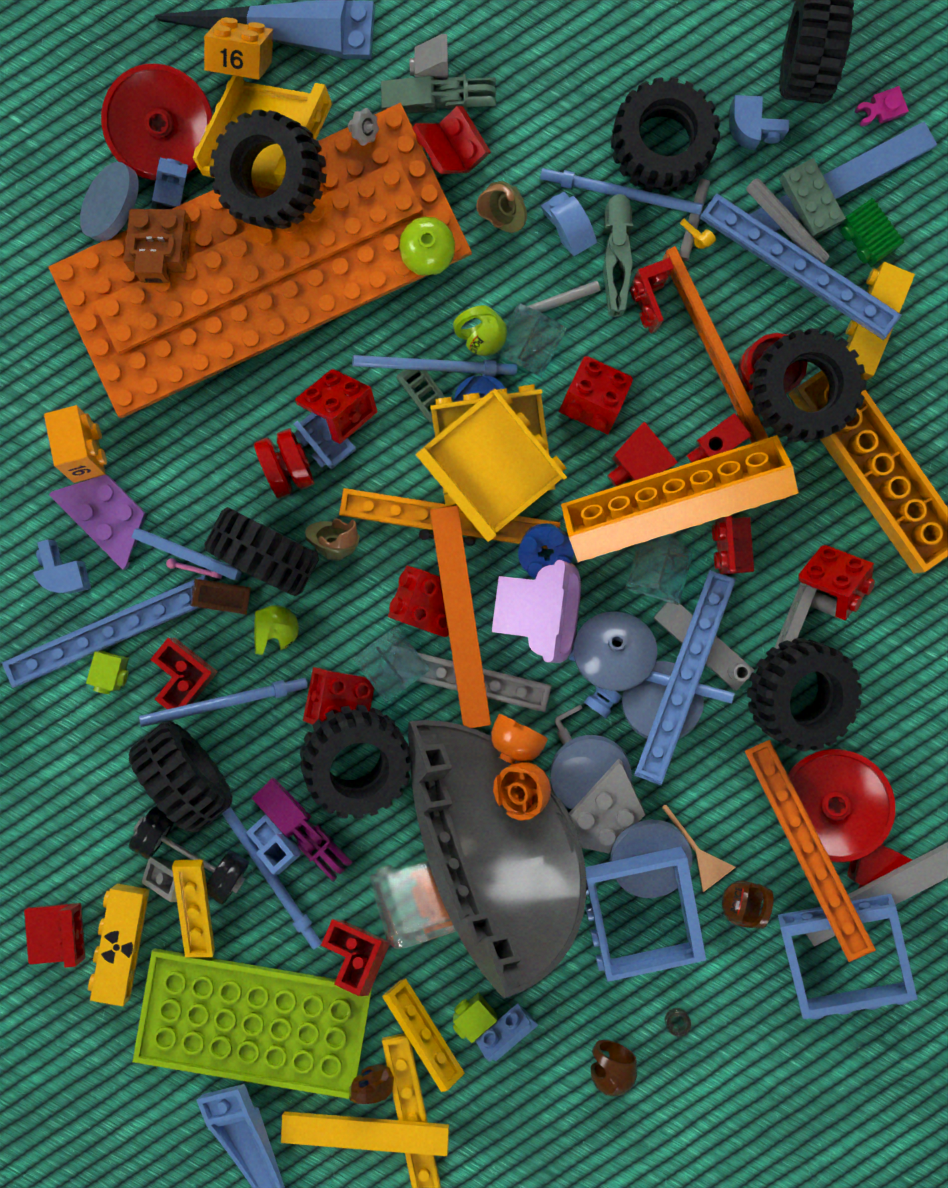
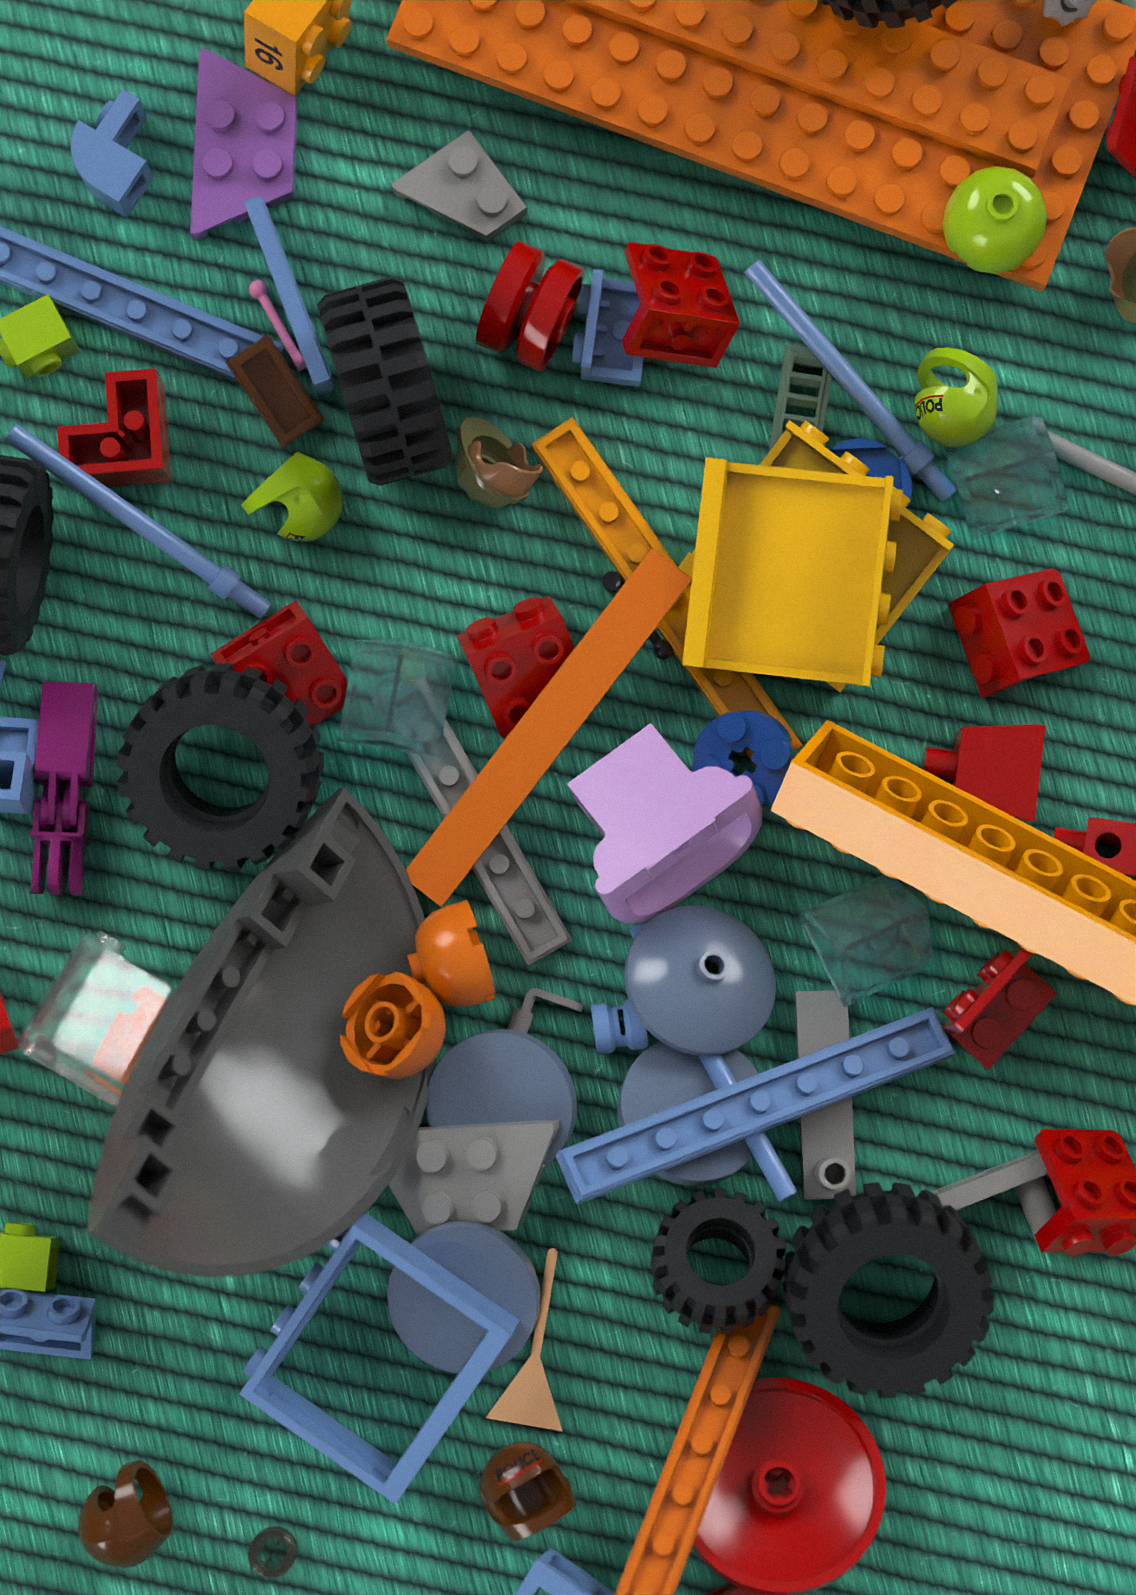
camera: 50 degrees right, 5 degrees down
(208, 442) = (463, 188): none -> light grey wing
(730, 724) = (724, 1220): none -> black tyre

